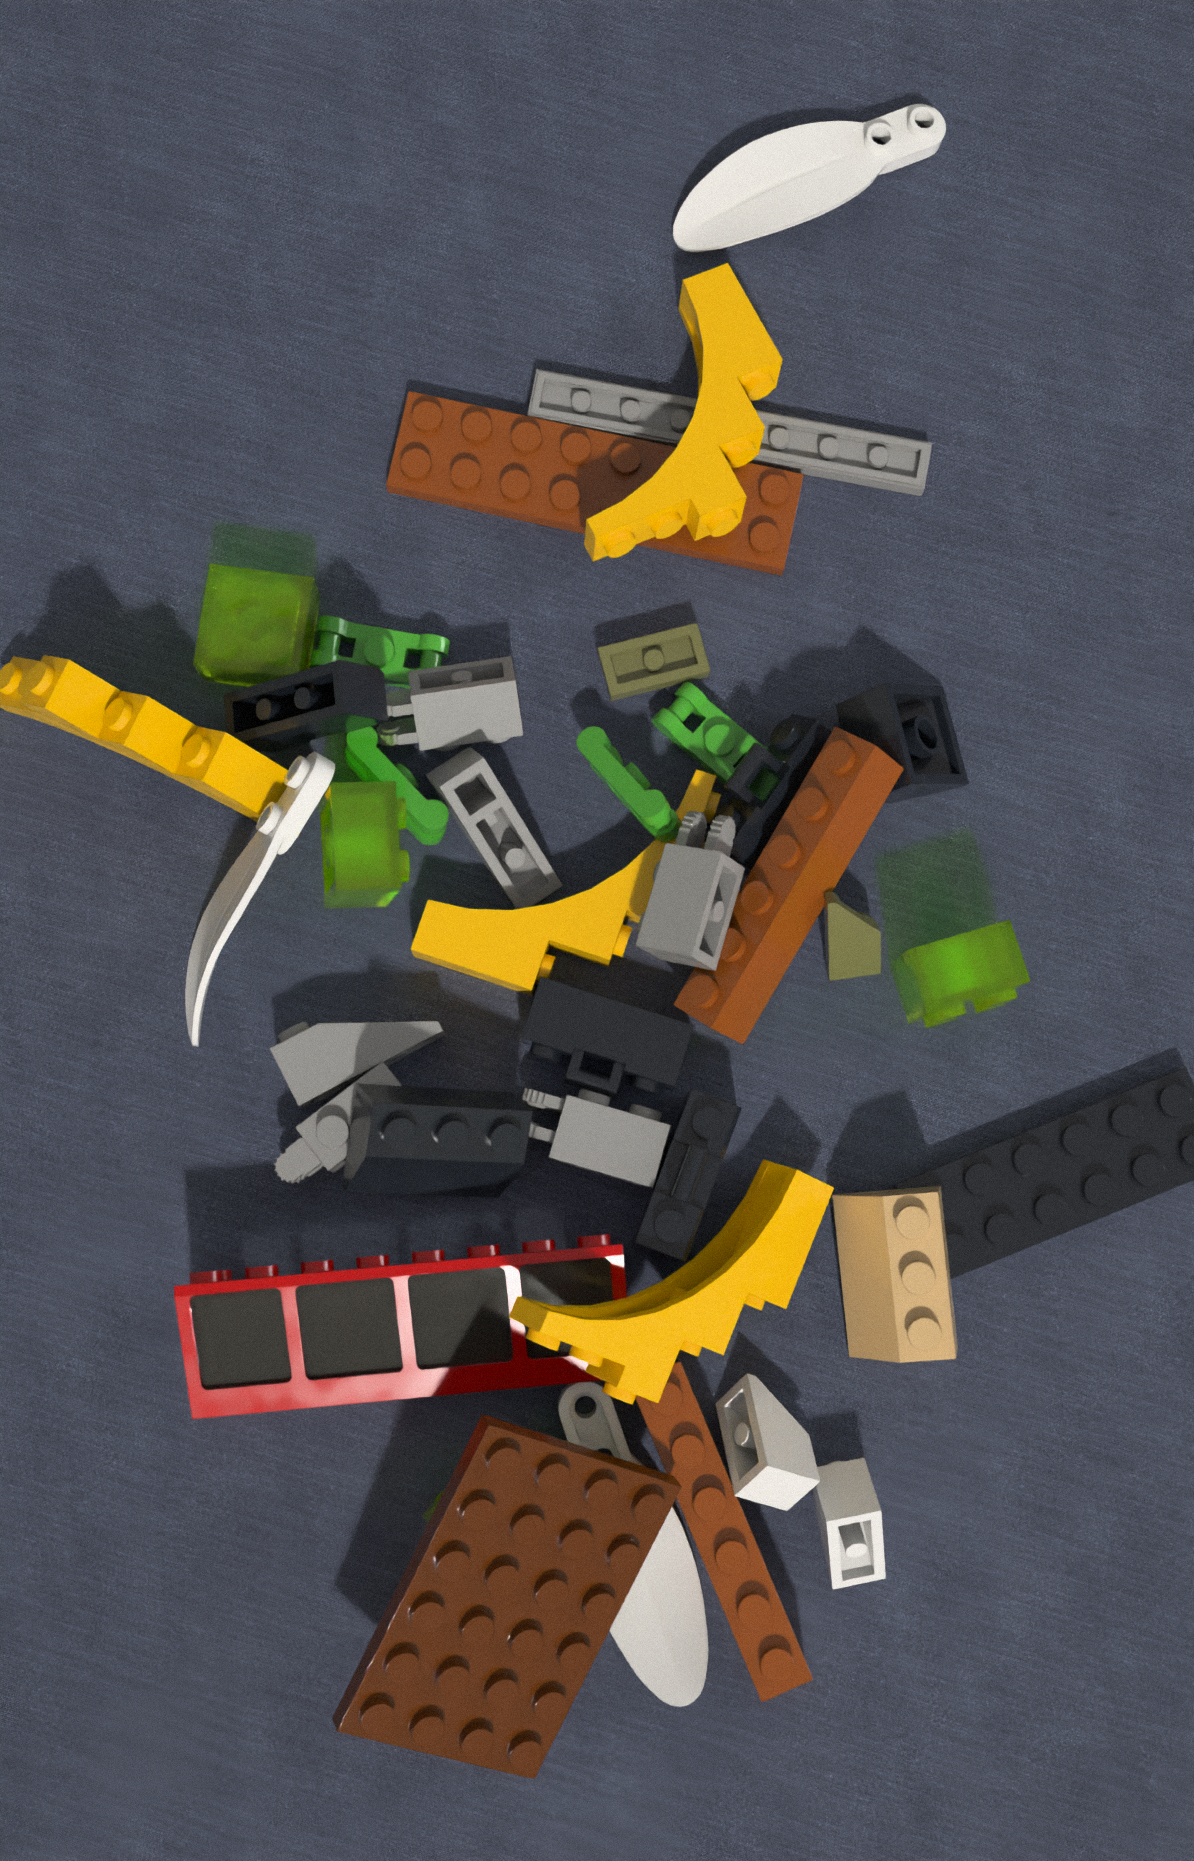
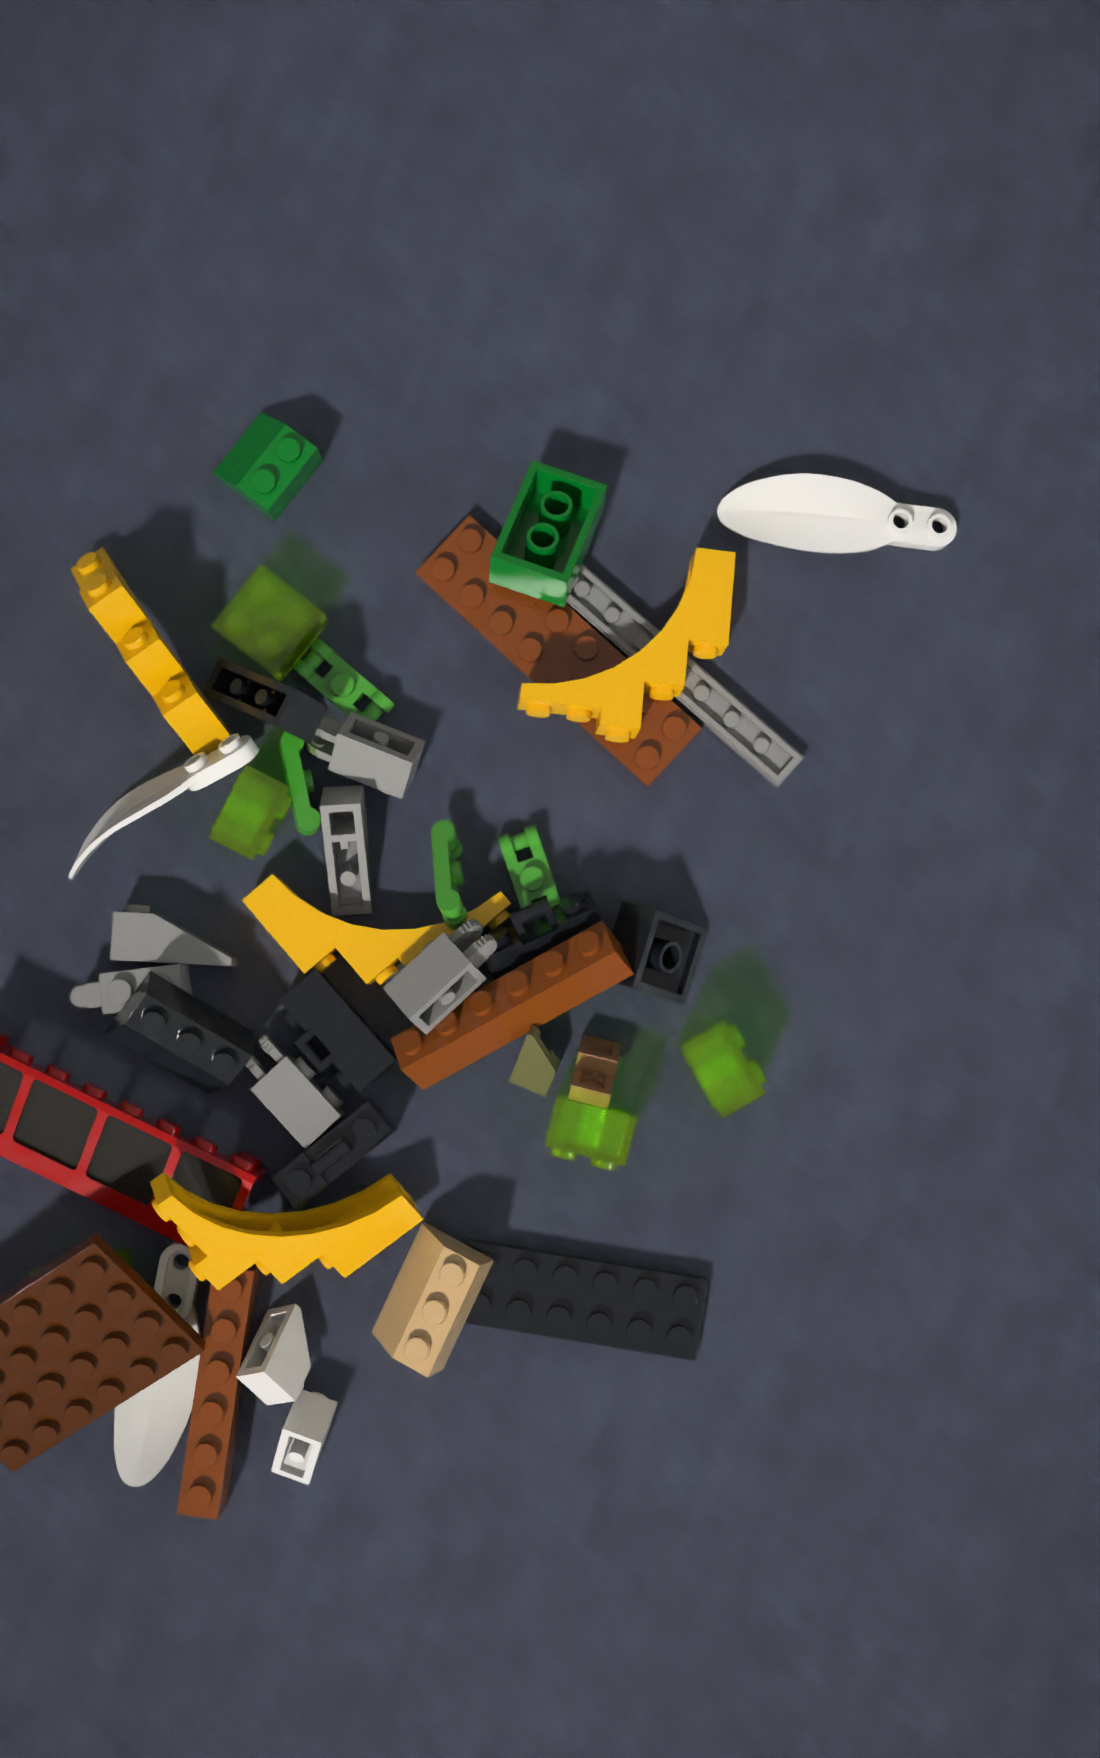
camera: 45 degrees right, 5 degrees up
(152, 460) = (269, 465): none -> green slope
(513, 353) = (547, 533): none -> green brick
(653, 662) = (521, 798): olive plate -> none
(921, 907) = (594, 1071): none -> medium nougat slope
(1060, 819) = (722, 1068): none -> clear neon green brick

